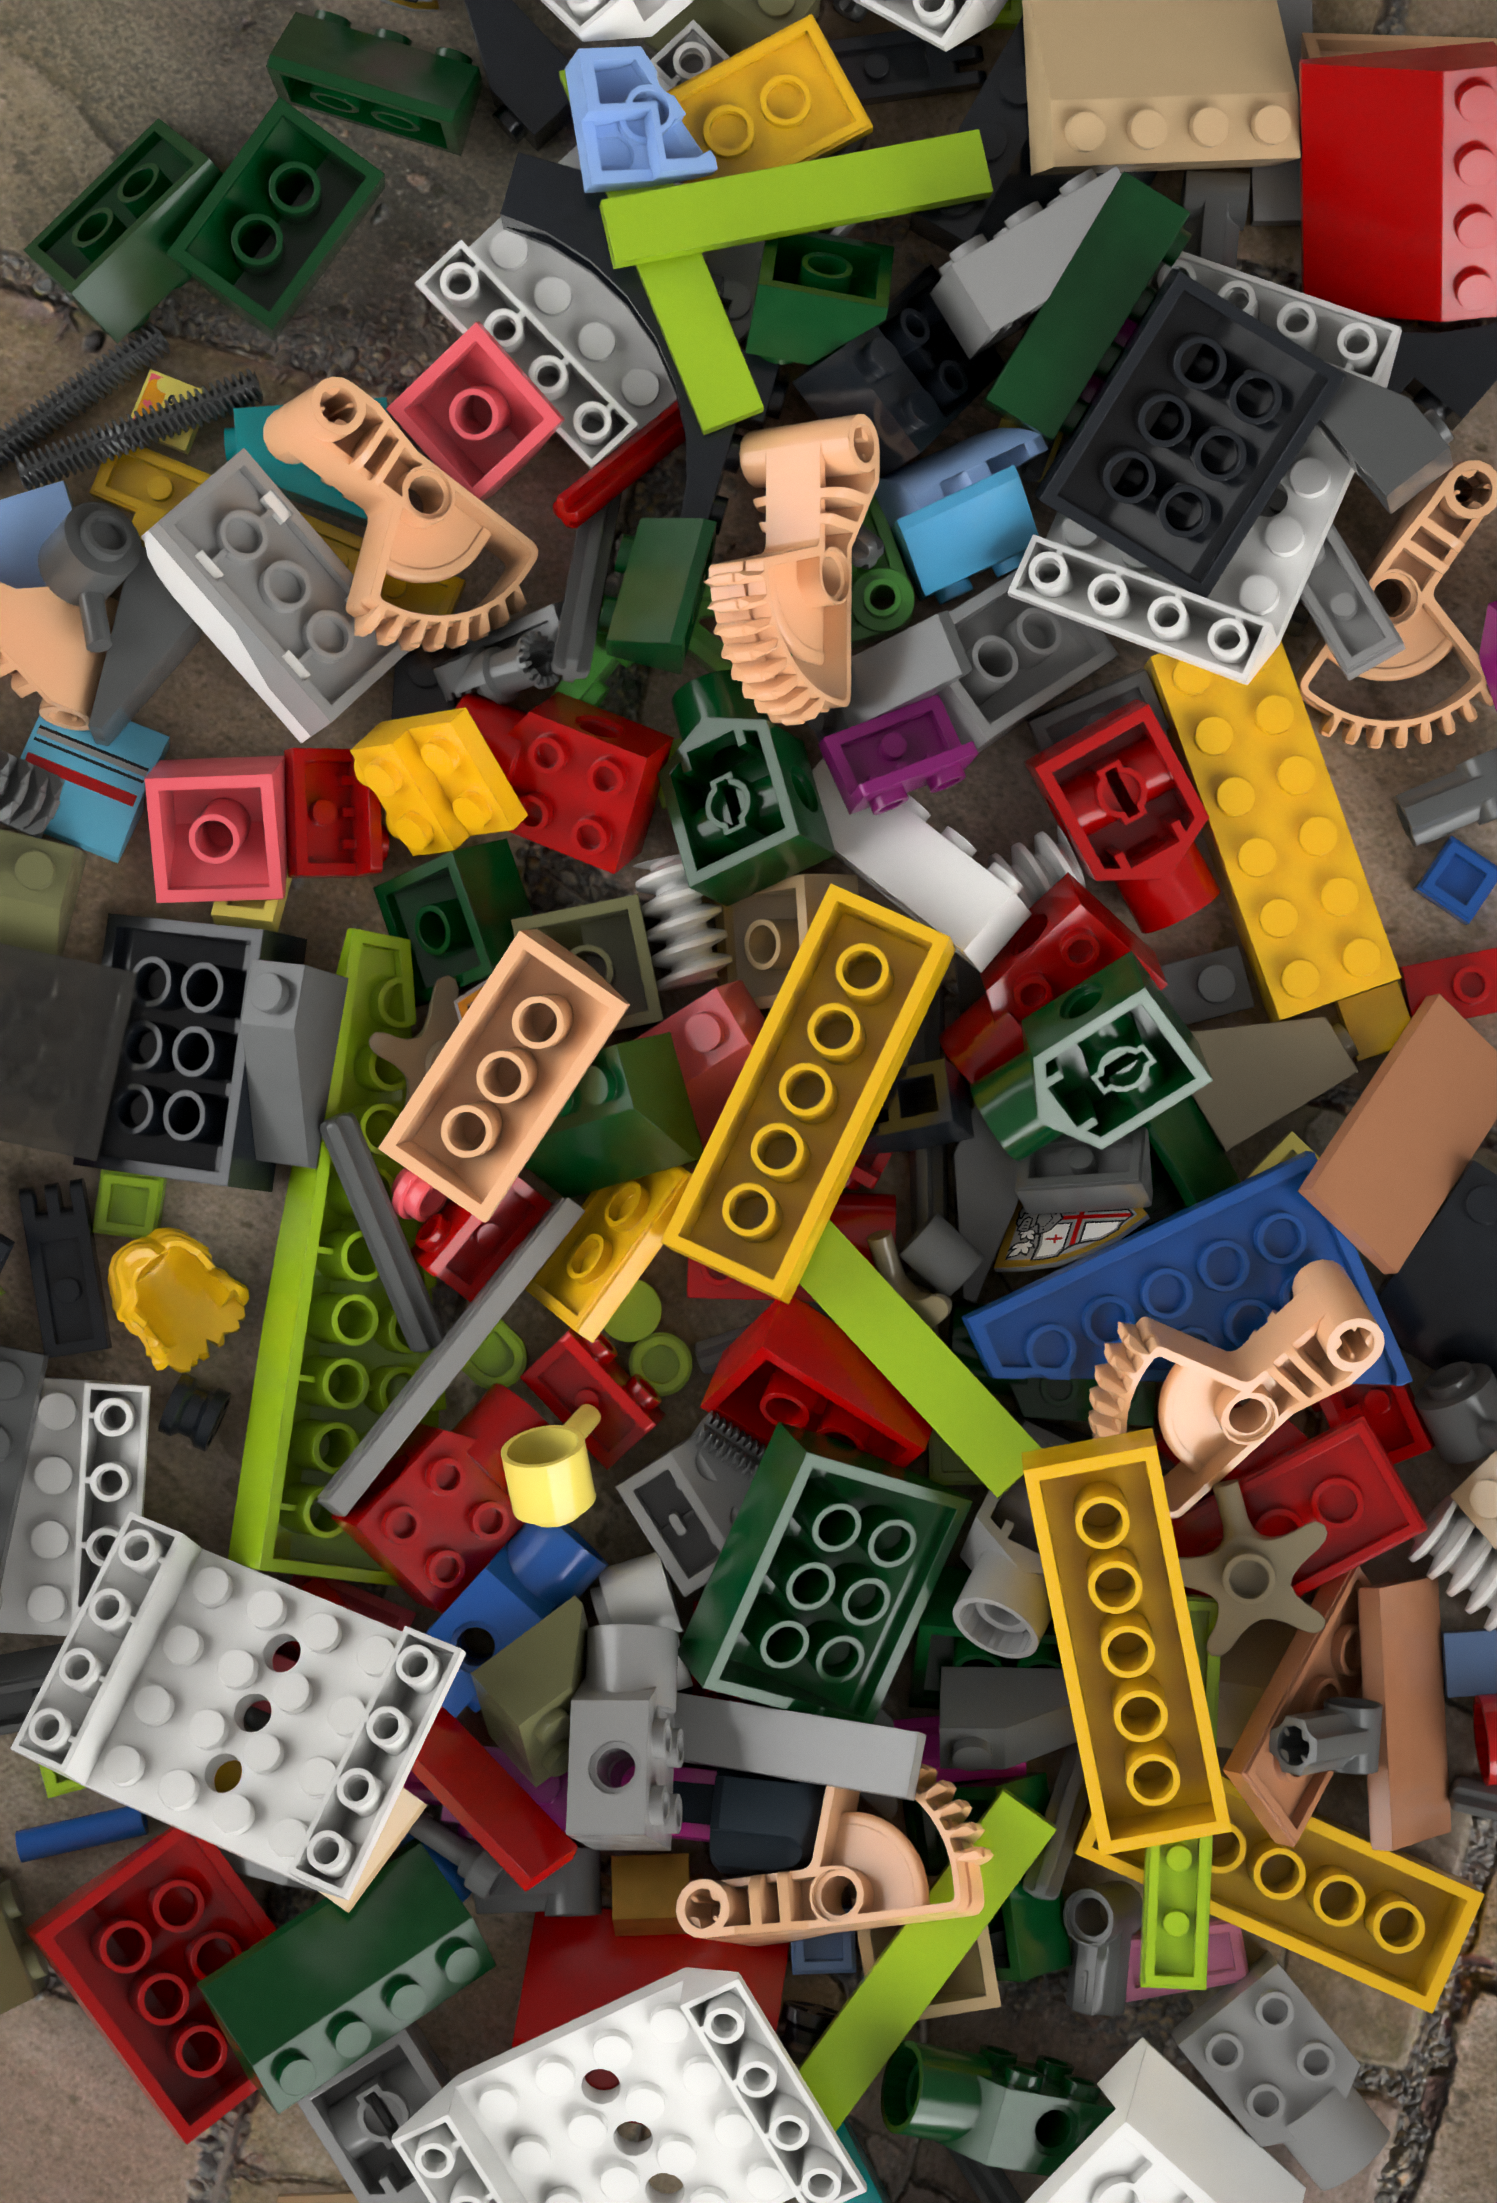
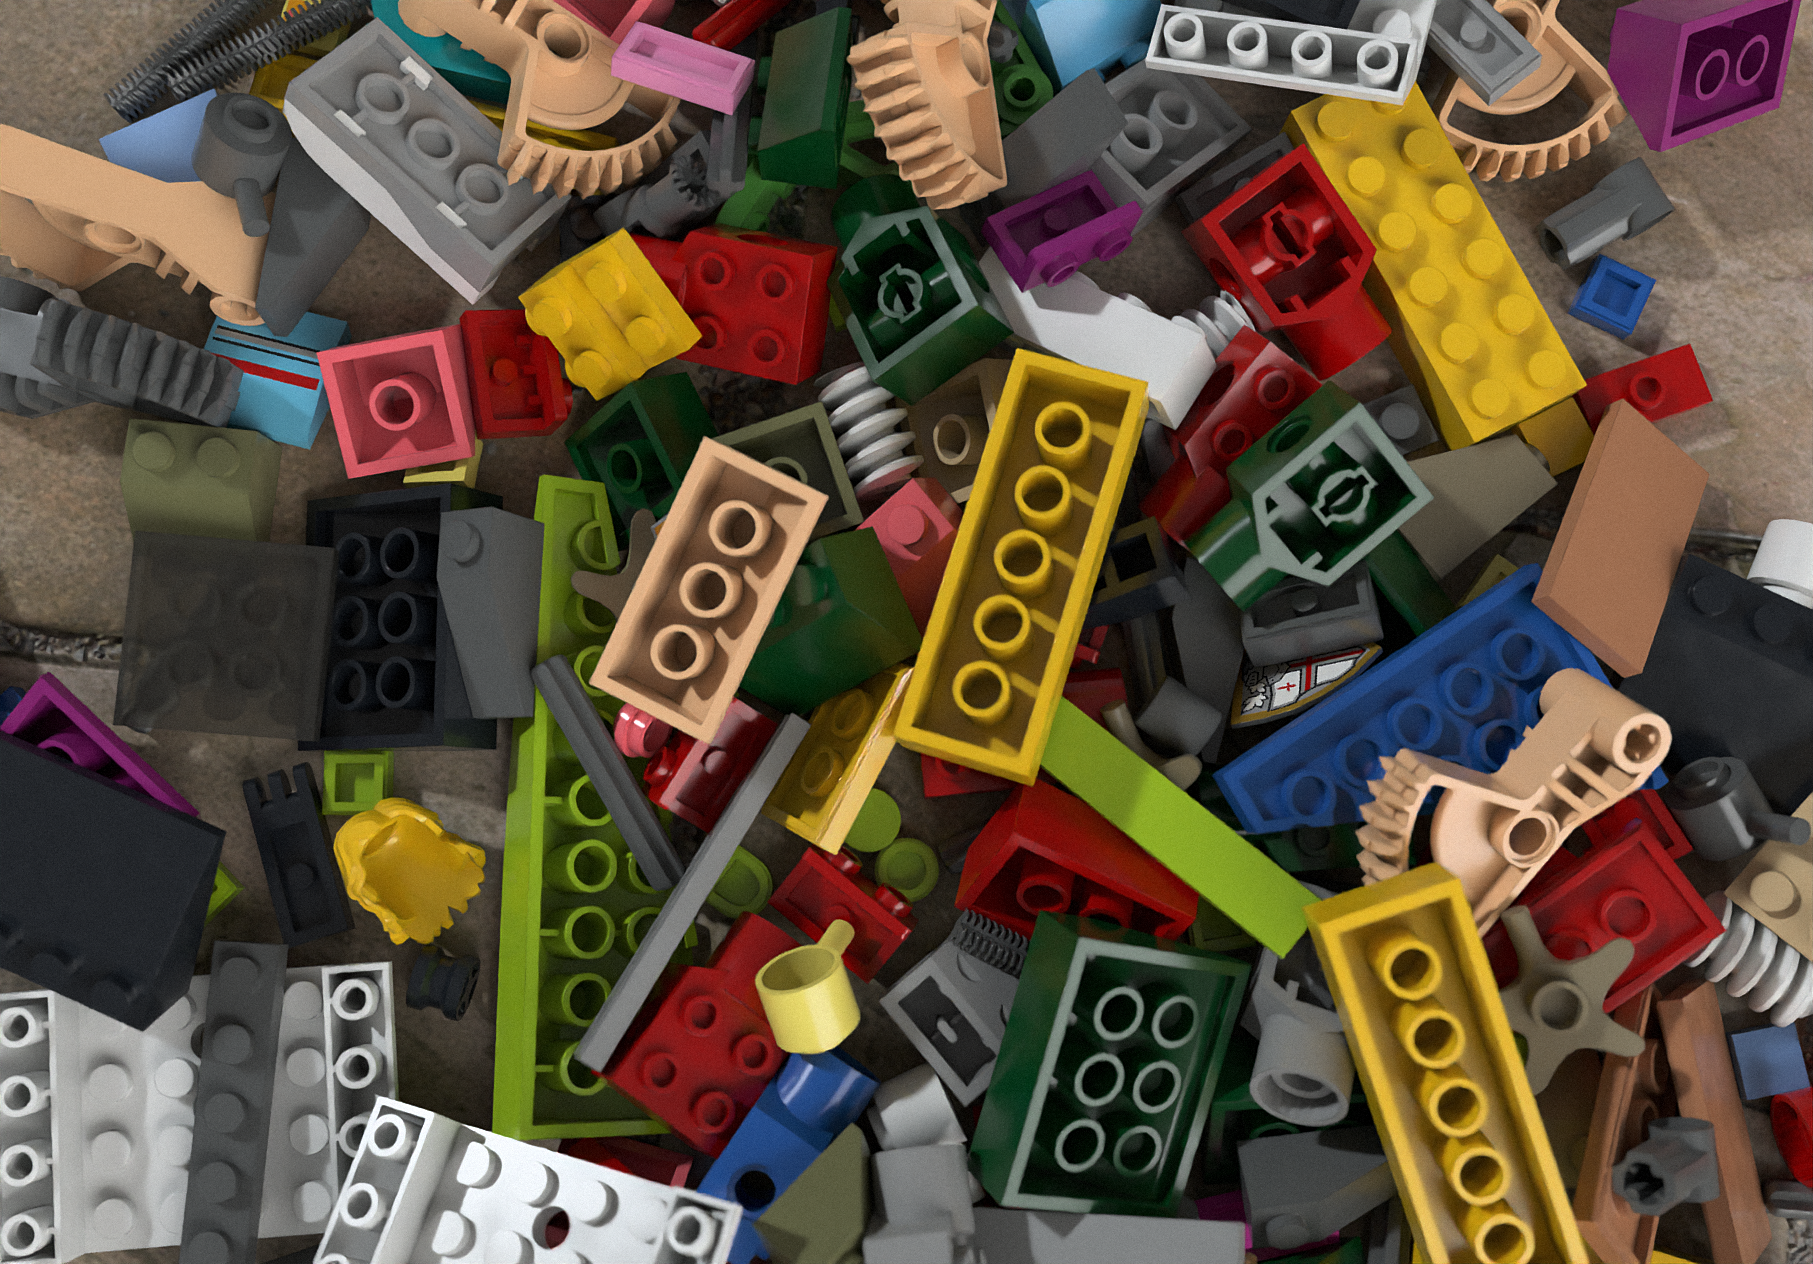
camera: 10 degrees left, 5 degrees down
(543, 537) = (683, 68): none -> bright pink tile

